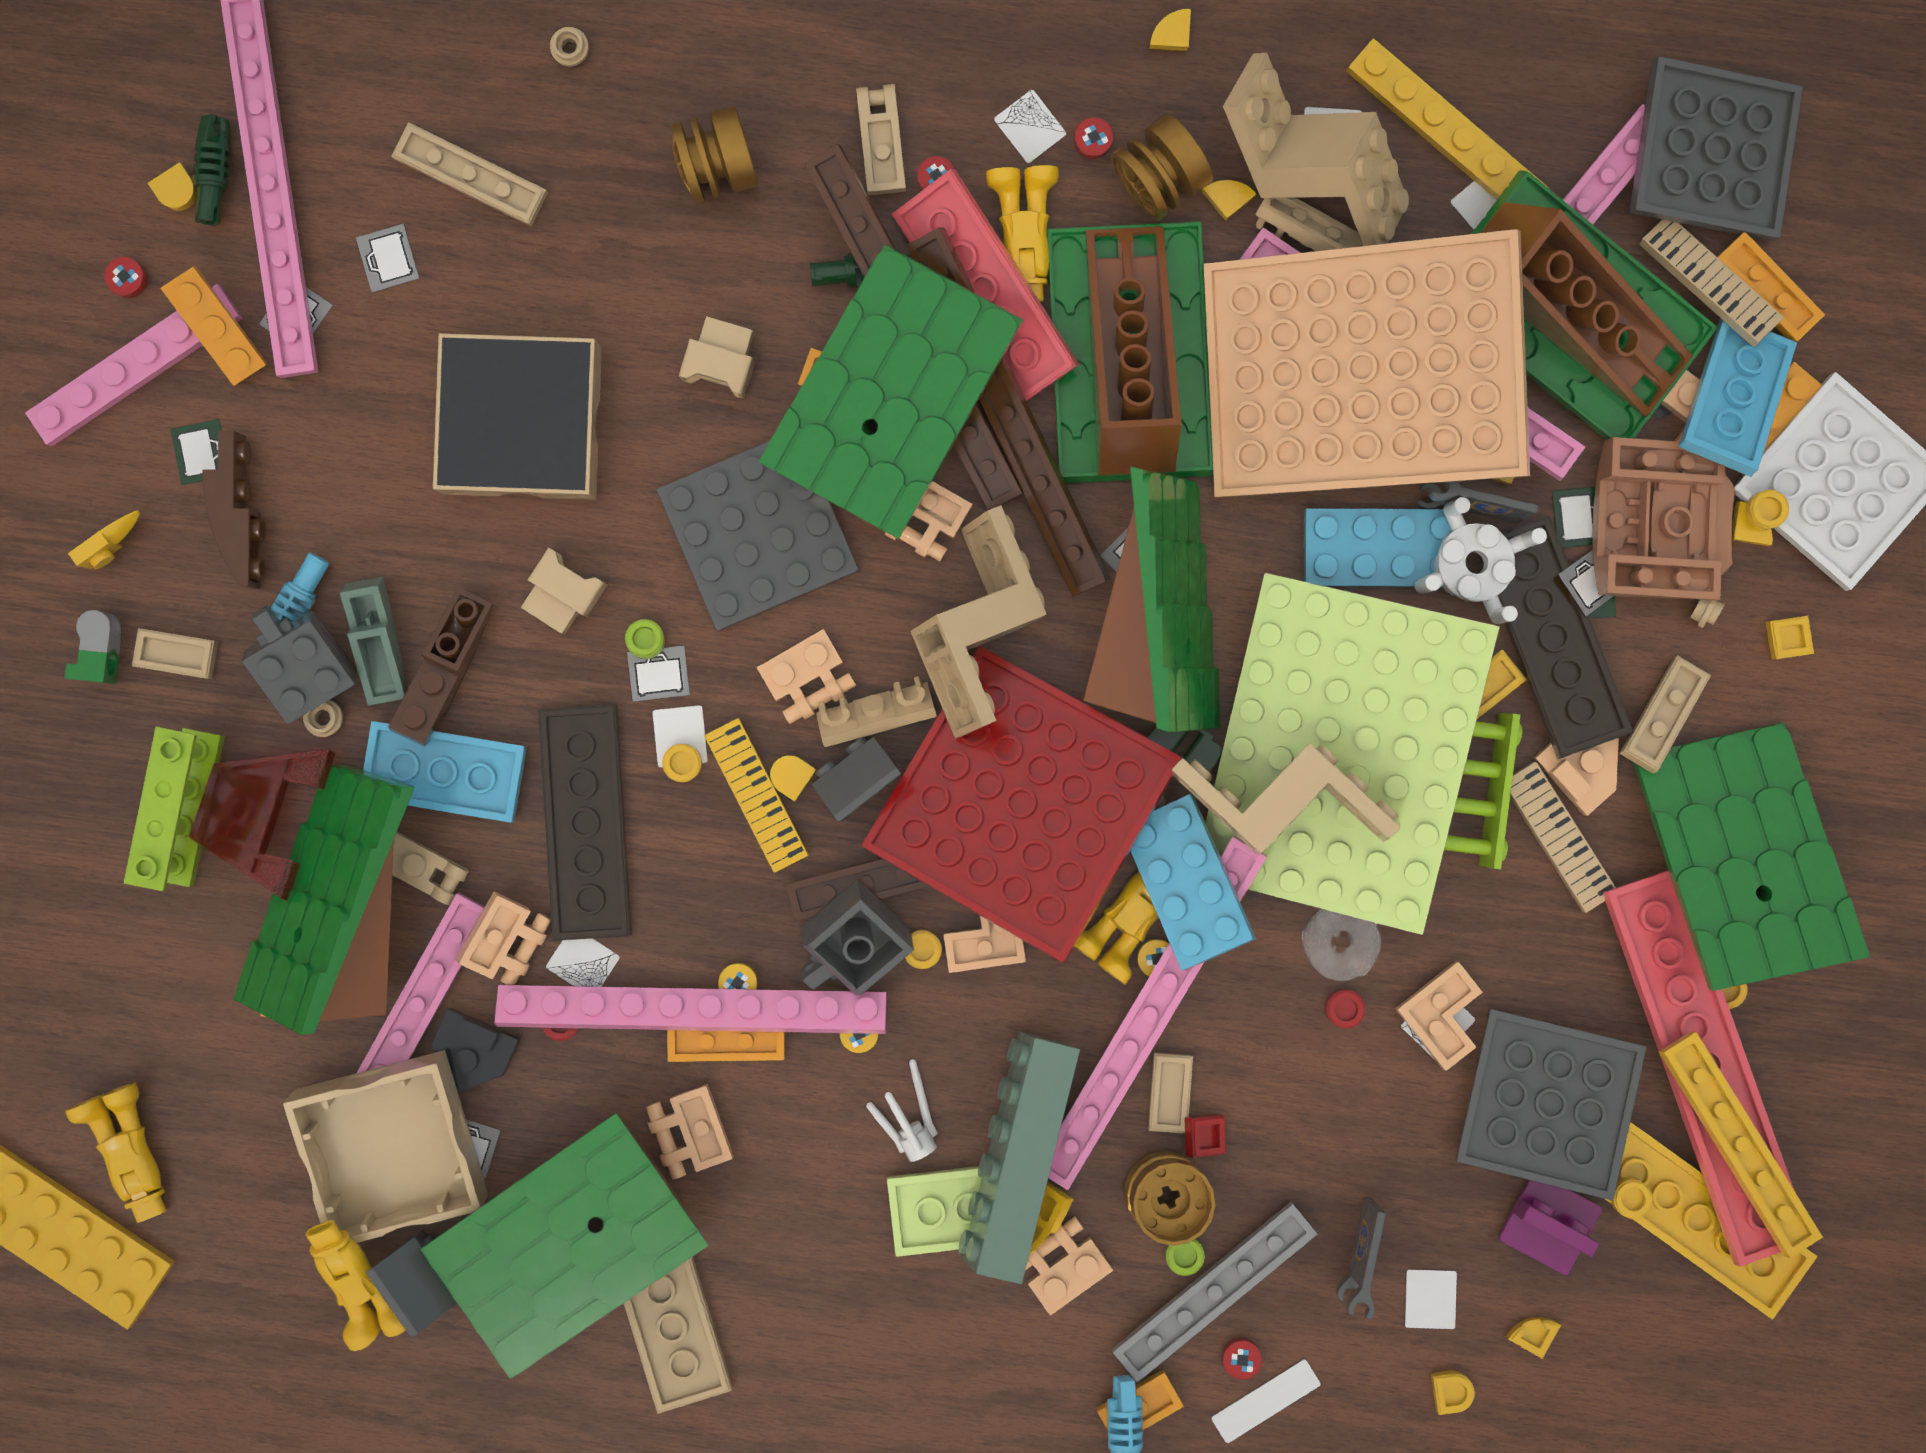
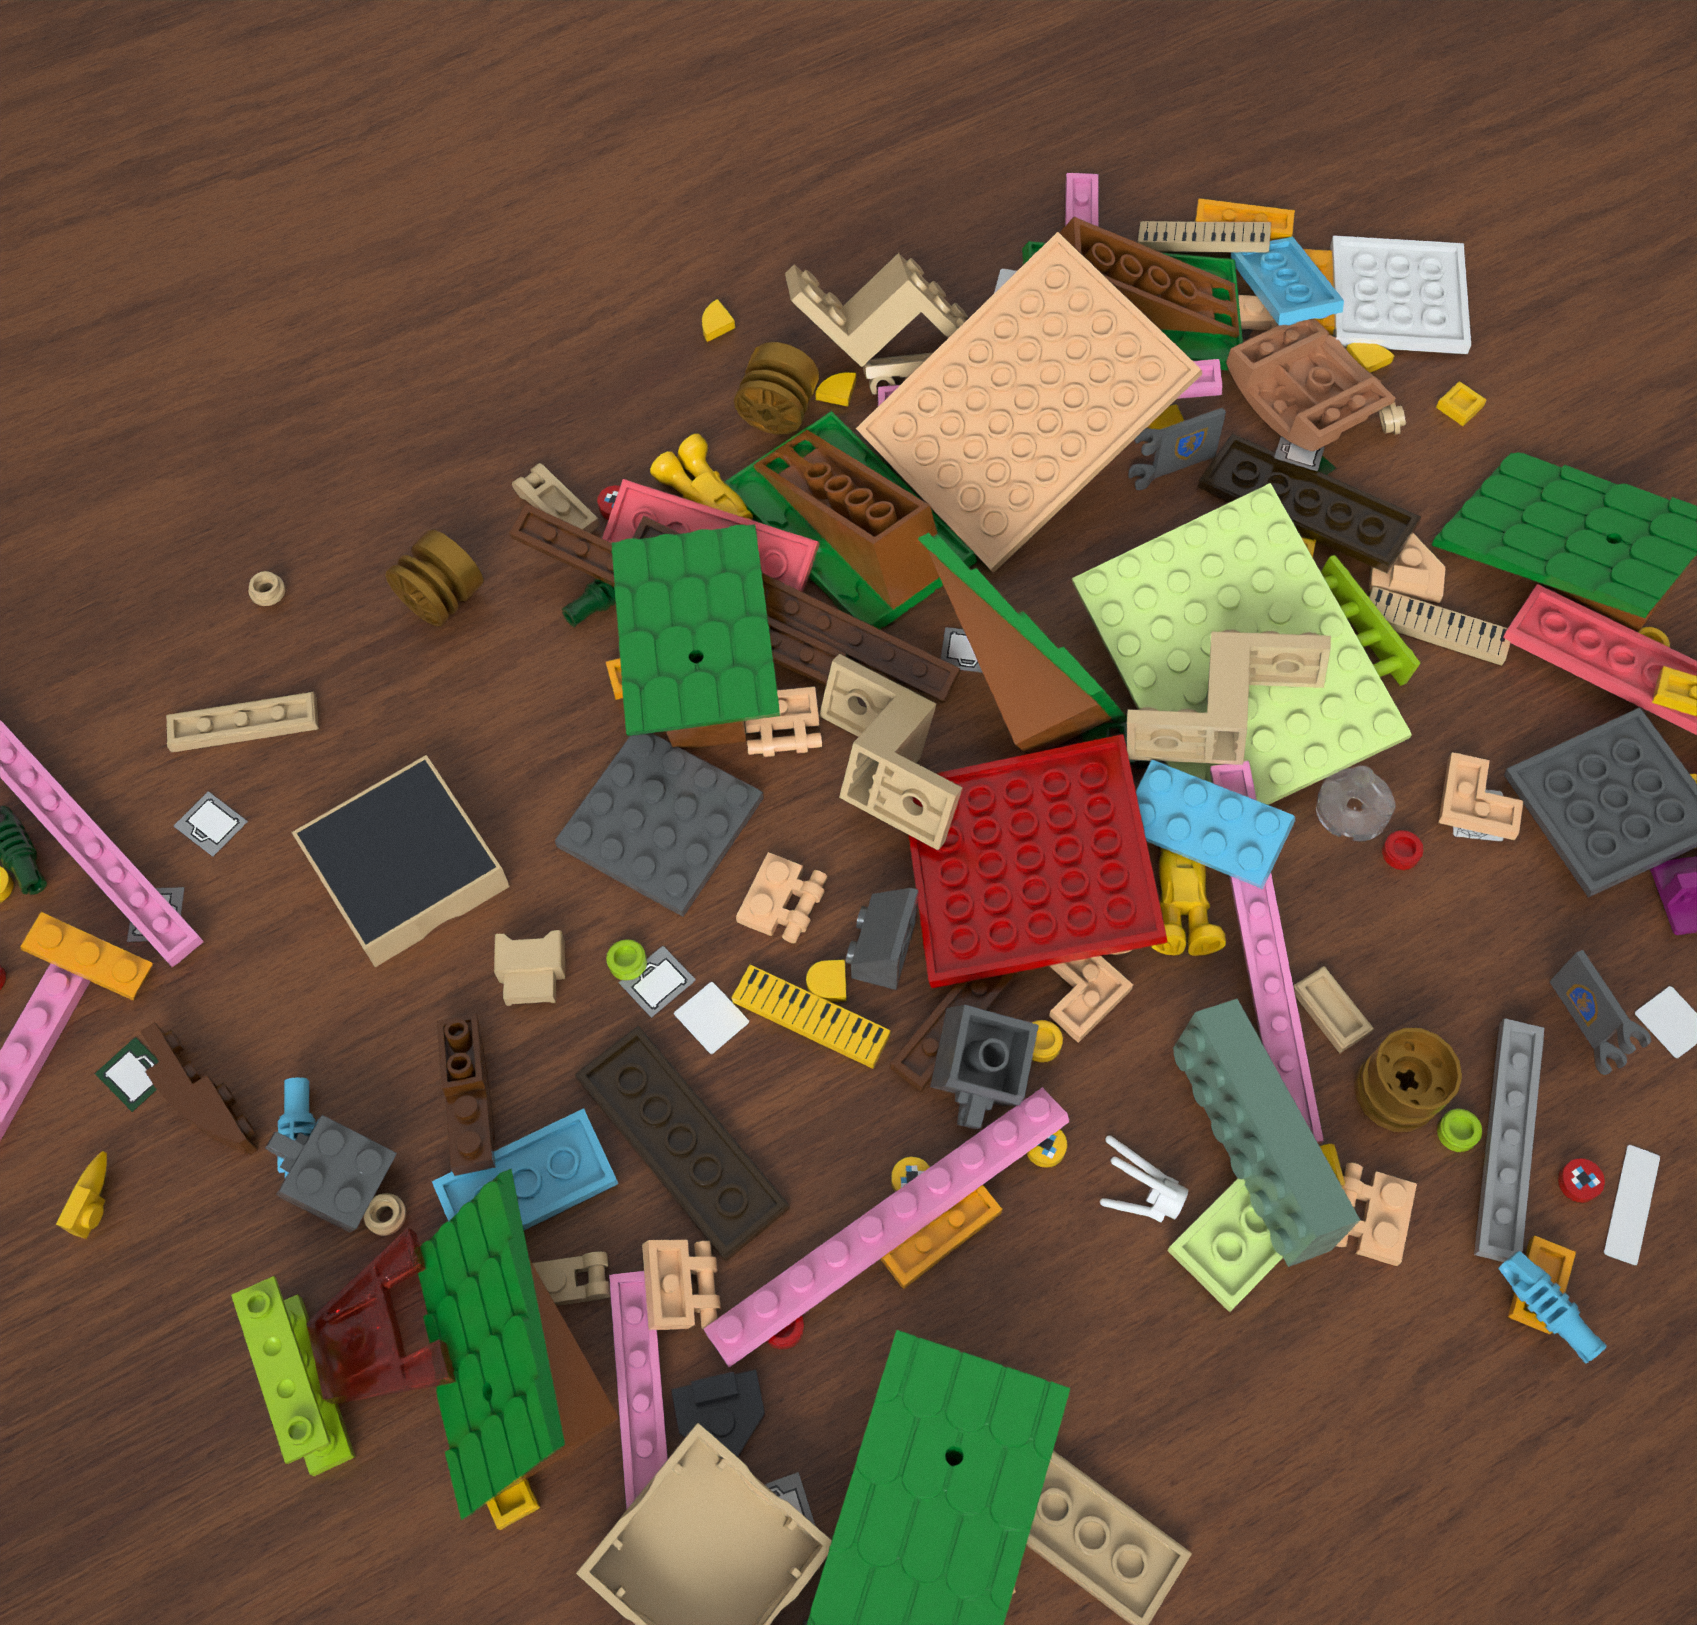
camera: 35 degrees left, 25 degrees down
(97, 649) = (133, 1298): leg -> none
(175, 653) = (210, 1255): tan tile -> none
(374, 640) = (392, 1117): sand green slope -> none
(583, 962) = (762, 1261): white sticker -> none
(682, 762) = (729, 1033): yellow tile -> none
(700, 1128) = (974, 1325): light nougat plate -> none
(720, 356) = (538, 716): tan piece -> none
(875, 713) = (858, 882): tan plate -> none
(1030, 126) = (659, 434): white sticker -> none
(1093, 138) = (712, 412): red tile -> none
(1150, 954) = (1224, 915): yellow tile -> none
(1205, 1135) = (1388, 1017): red tile -> none
(1371, 546) = (1134, 520): medium azure plate -> none
(1435, 119) = (942, 263): yellow plate -> none
(1497, 558) = (1207, 469): white plate -> none
(1574, 516) = (1249, 425): sticker -> none
(1665, 714) = (1430, 497): tan tile -> none
(1715, 148) = (1136, 167): dark grey plate -> none
(1767, 509) = (1371, 332): yellow tile -> none

